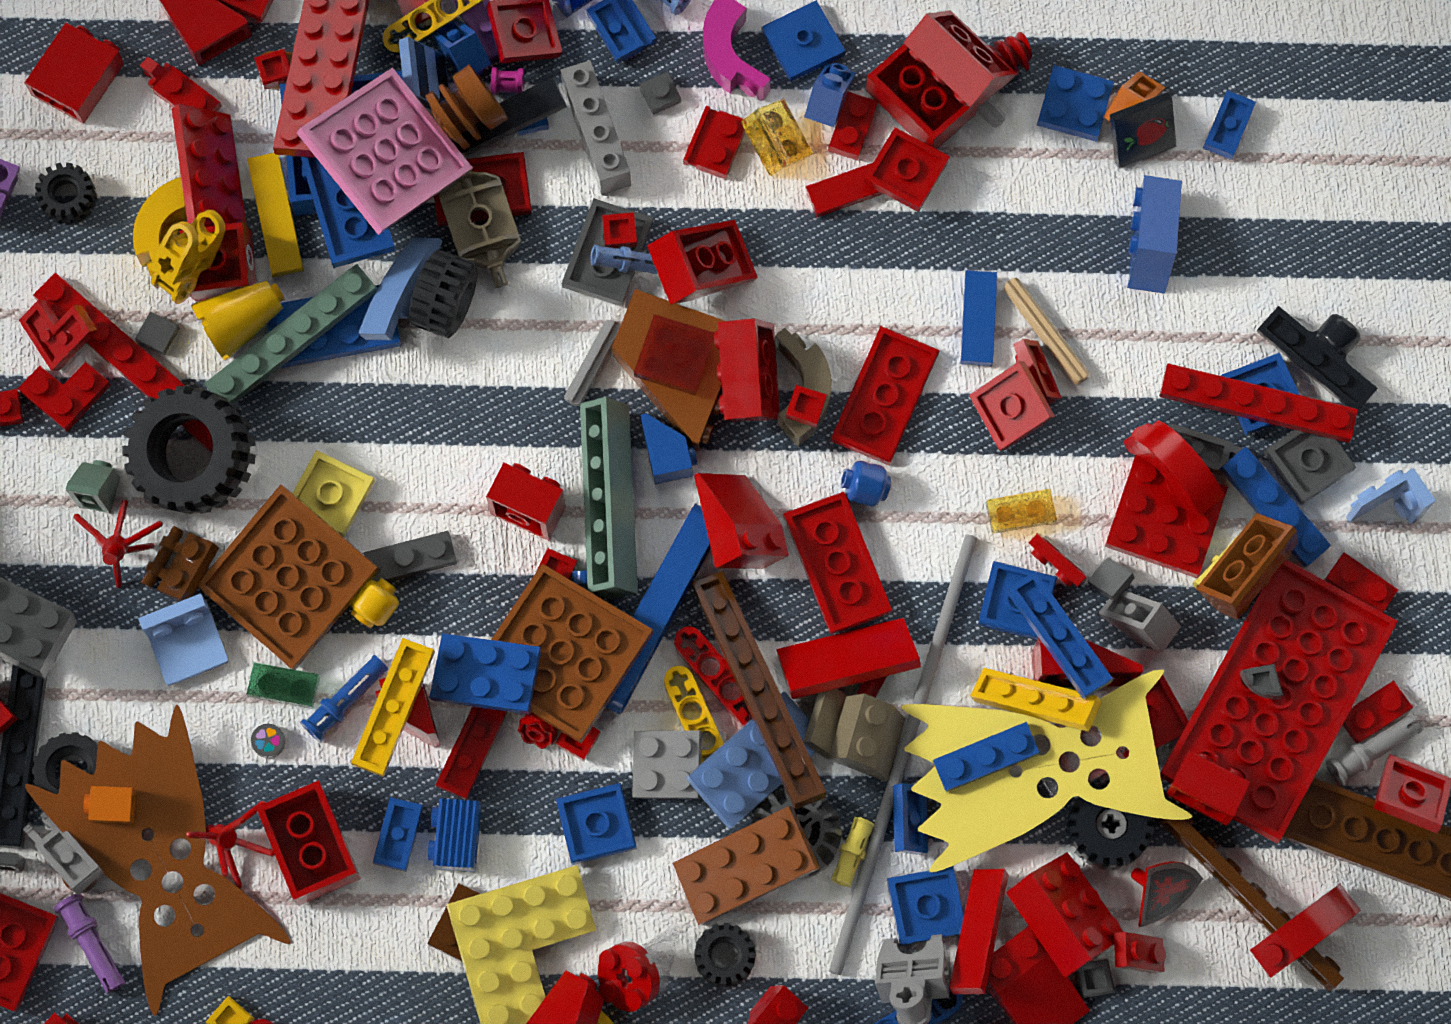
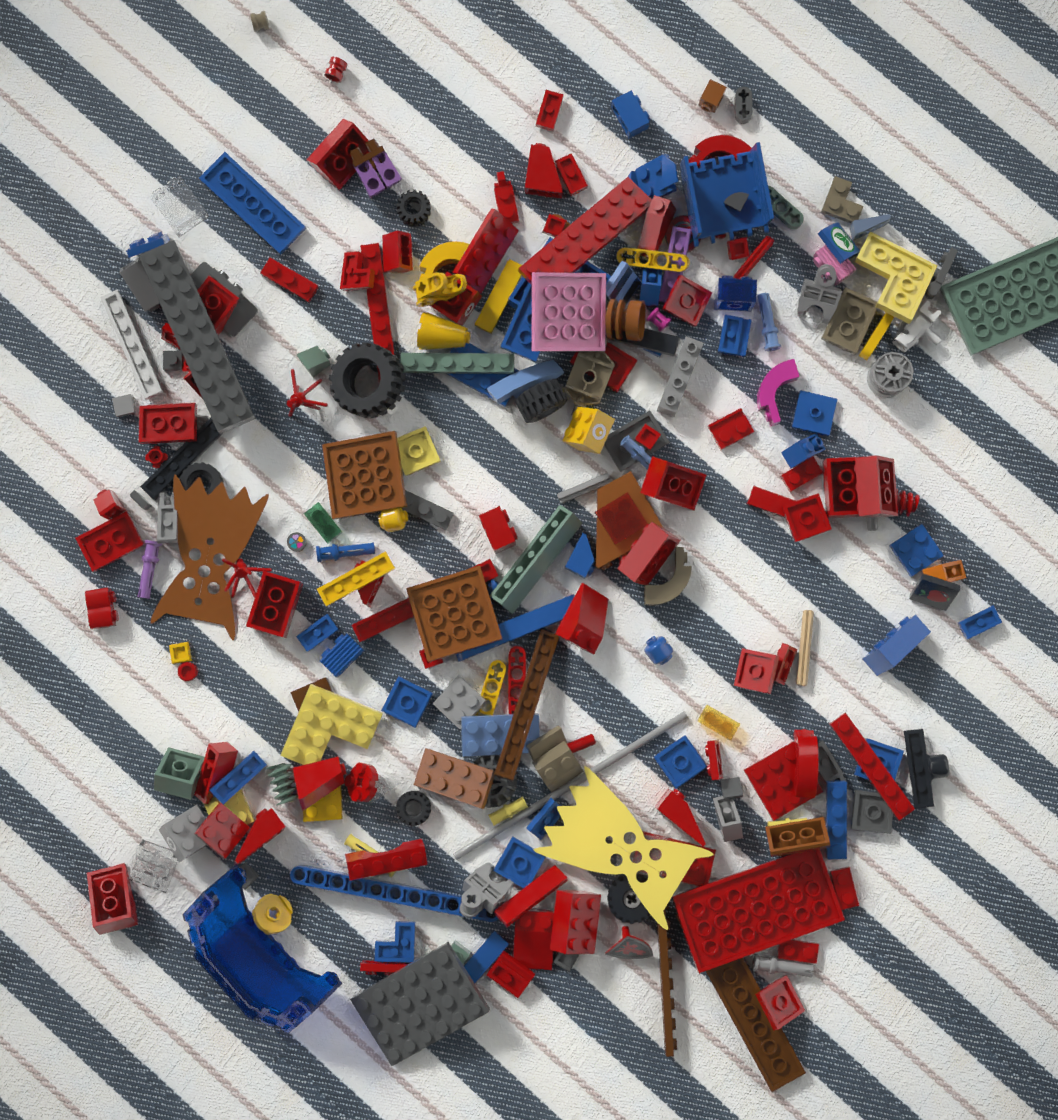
camera: 45 degrees right, 10 degrees up
(65, 402) = (334, 308): red plate -> none
(75, 72) = (465, 151): red brick -> none
(90, 264) = (397, 252): none -> red brick
(110, 804) = (202, 516): orange brick -> none
(157, 333) = (401, 309): dark grey tile -> none
(184, 639) = (297, 466): light blue bracket -> none
(185, 570) = (325, 432): reddish brown plate -> none
(485, 673) = (412, 595): blue plate -> none
(536, 281) = (588, 430): none -> yellow brick
(537, 731) = (414, 637): red plate -> none
(660, 93) = (725, 383): dark grey plate -> none
(776, 136) = (760, 451): clear yellow bracket -> none
(806, 406) = (660, 593): red plate -> none
(837, 563) = (614, 675): red plate -> none
(848, 658) = (580, 724): red tile -> none
(885, 395) = (704, 615): red tile -> none
(978, 318) = (779, 615): blue tile -> none
(986, 757) = (601, 822): blue plate -> none
(1035, 699) = (646, 816): yellow plate -> none
(1059, 635) = (679, 799): blue plate -> none
(1139, 952) = (593, 965): red plate -> none
(1208, 787) = (686, 923): red brick -> none
(1263, 681) = (756, 895): dark grey tile -> none
(1305, 930) = (677, 1022): red arch -> none
(1406, 489) = (903, 866): light blue bracket -> none

